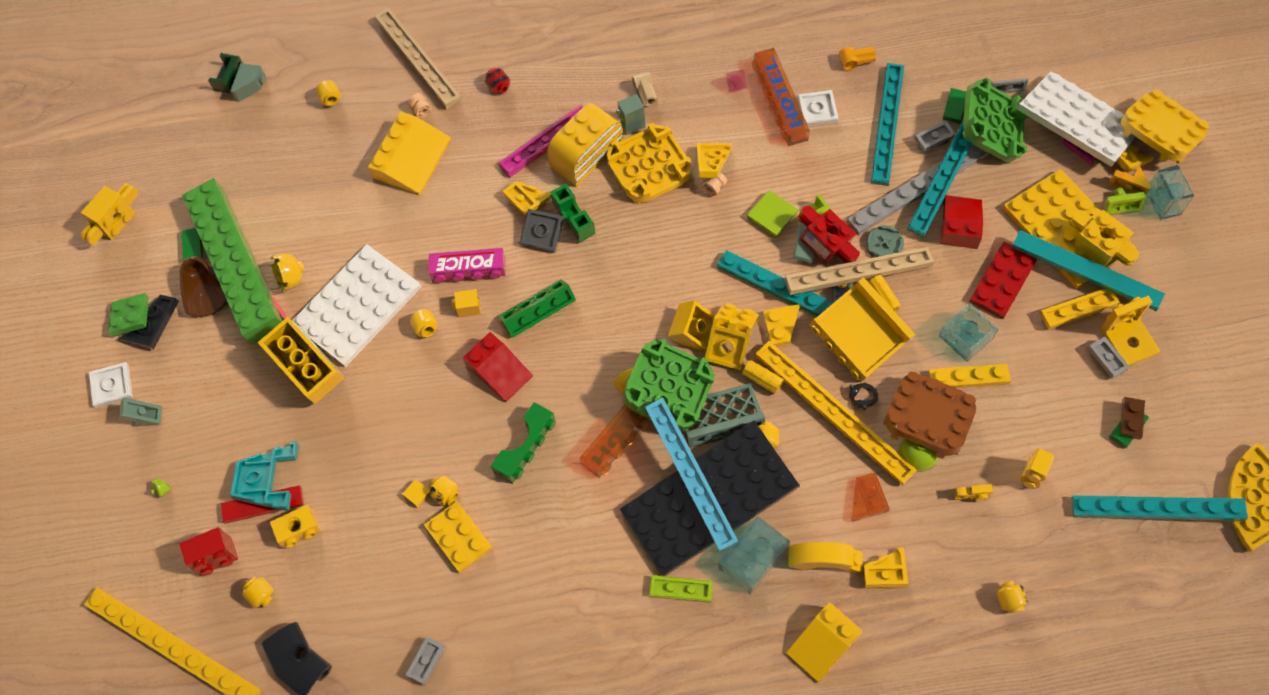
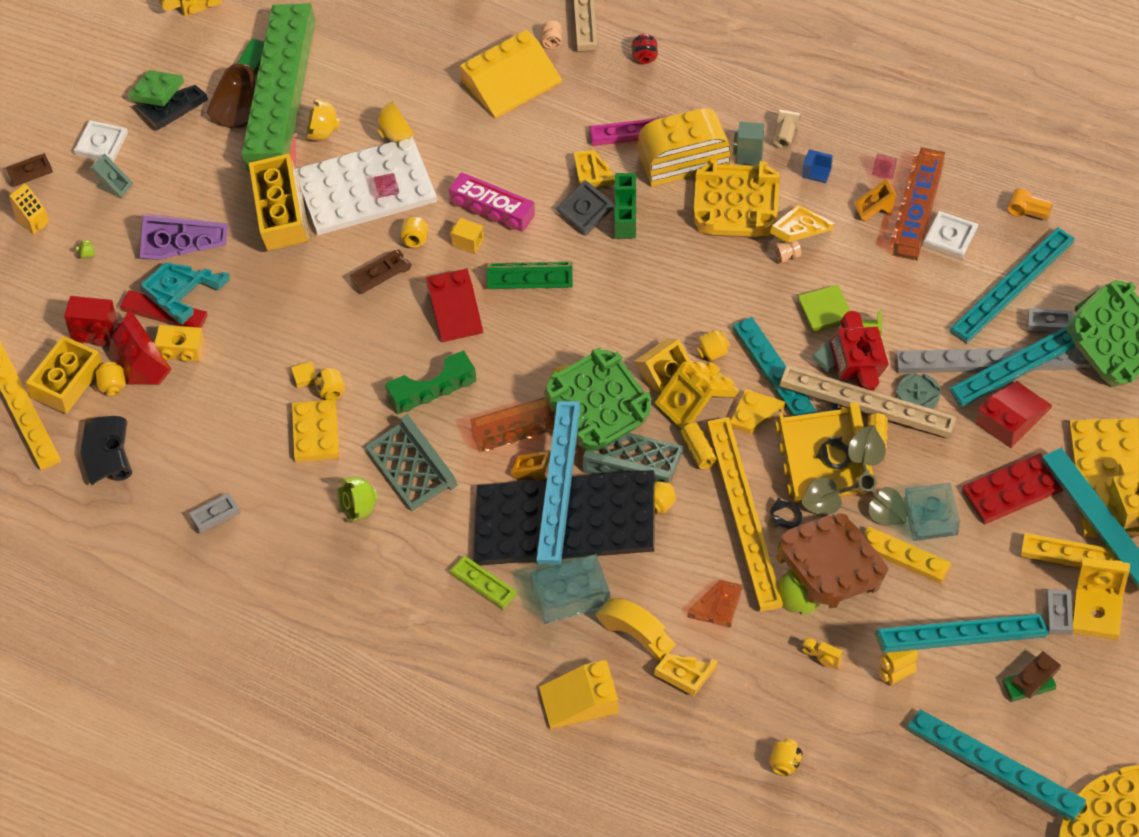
camera: 30 degrees right, 10 degrees down
(64, 444) = (29, 169): none -> reddish brown plate
(88, 481) = (28, 209): none -> yellow slope
(216, 613) = (64, 374): none -> yellow brick
(224, 436) = (173, 236): none -> medium lavender wedge
(266, 557) = (137, 353): none -> red wedge
(347, 243) = (393, 124): none -> yellow cylinder
(376, 296) = (386, 185): none -> clear pink plate
(418, 371) = (380, 271): none -> reddish brown plate
(535, 578) = (357, 498): none -> lime cylinder
(563, 505) = (423, 449): none -> sand green fence
(652, 467) = (532, 465): none -> light orange slope
(688, 106) = (817, 166): none -> blue panel
(716, 289) = (713, 345): none -> yellow head
(751, 109) = (878, 198): none -> light orange slope
(860, 332) = (833, 441): none -> black piece
(930, 343) = (887, 506): none -> olive plant
(1066, 420) = (961, 633): none -> teal tile

